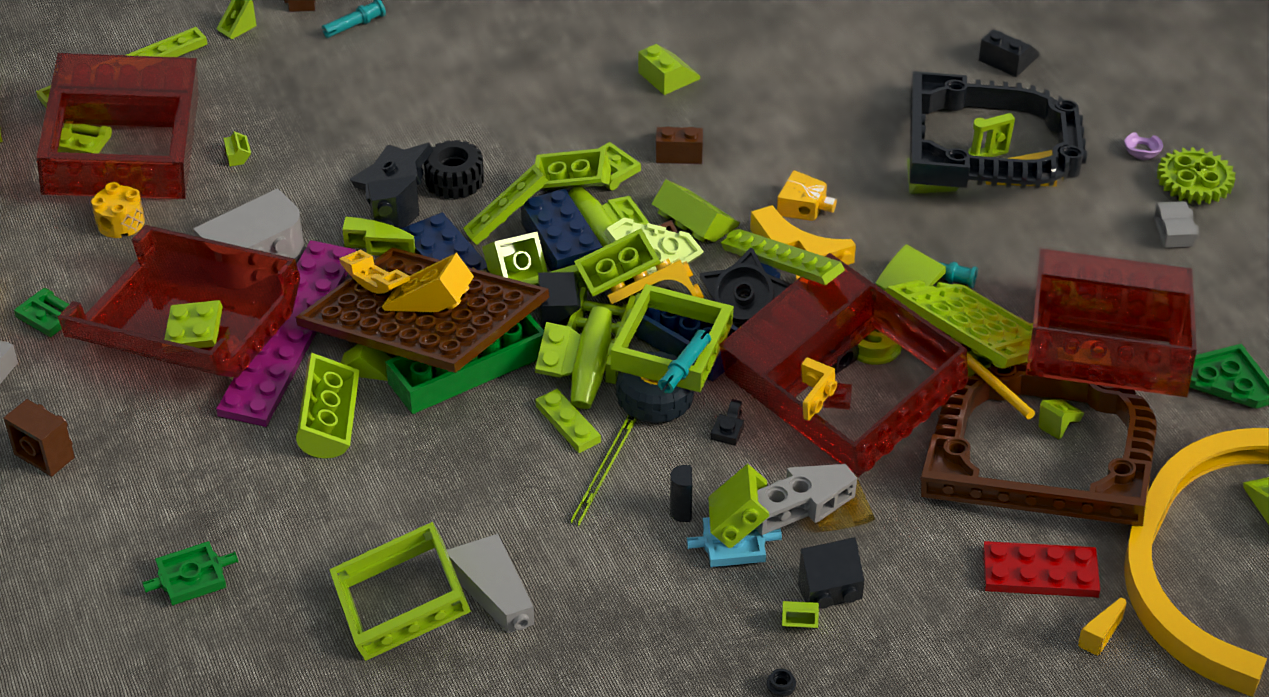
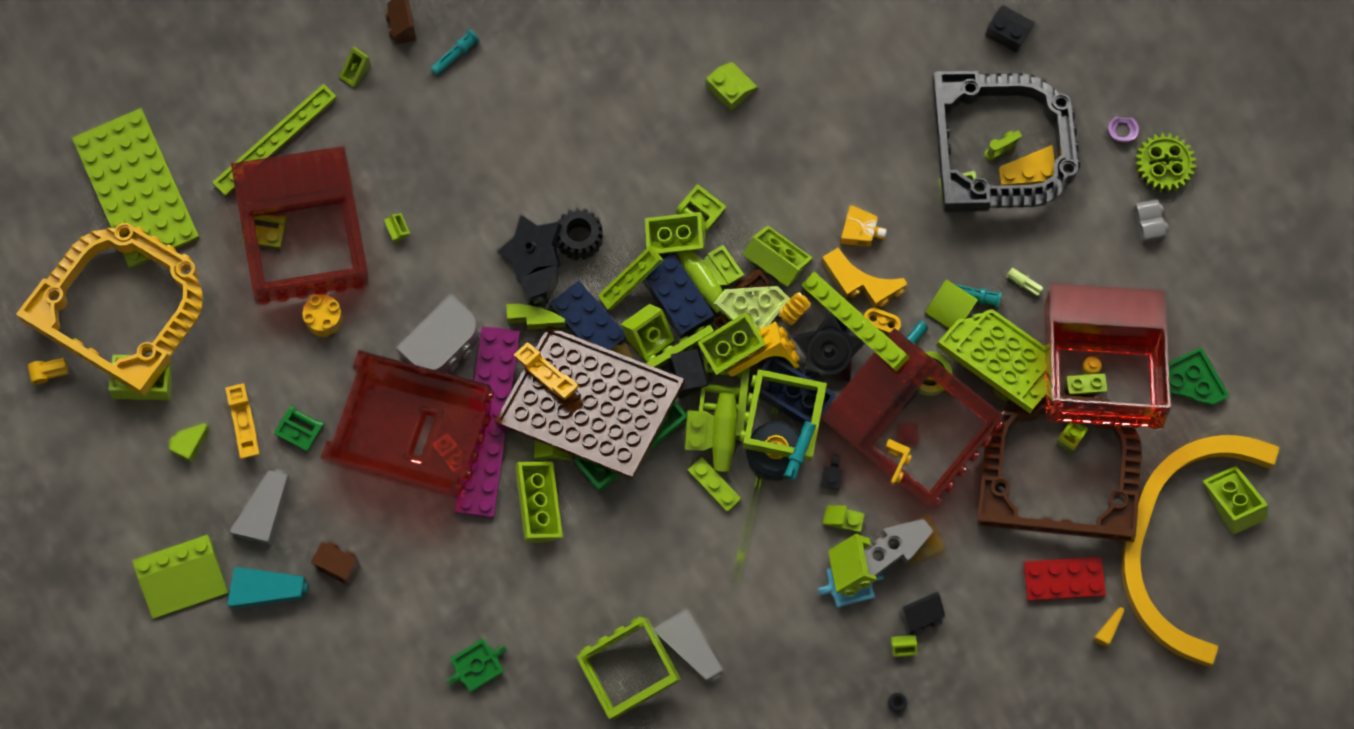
camera: 10 degrees left, 30 degrees up
(194, 323) = (420, 441): lime plate -> none
(432, 288) = (598, 391): yellow slope -> none
(679, 145) = (753, 175): reddish brown slope -> none
(681, 493) = (810, 554): black brick -> none
(707, 255) = (794, 309): none -> yellow gear
(729, 464) = (842, 518): none -> lime slope
(999, 387) = (1026, 424): yellow bar -> none
(1008, 265) = (1024, 281): none -> yellowish green axle

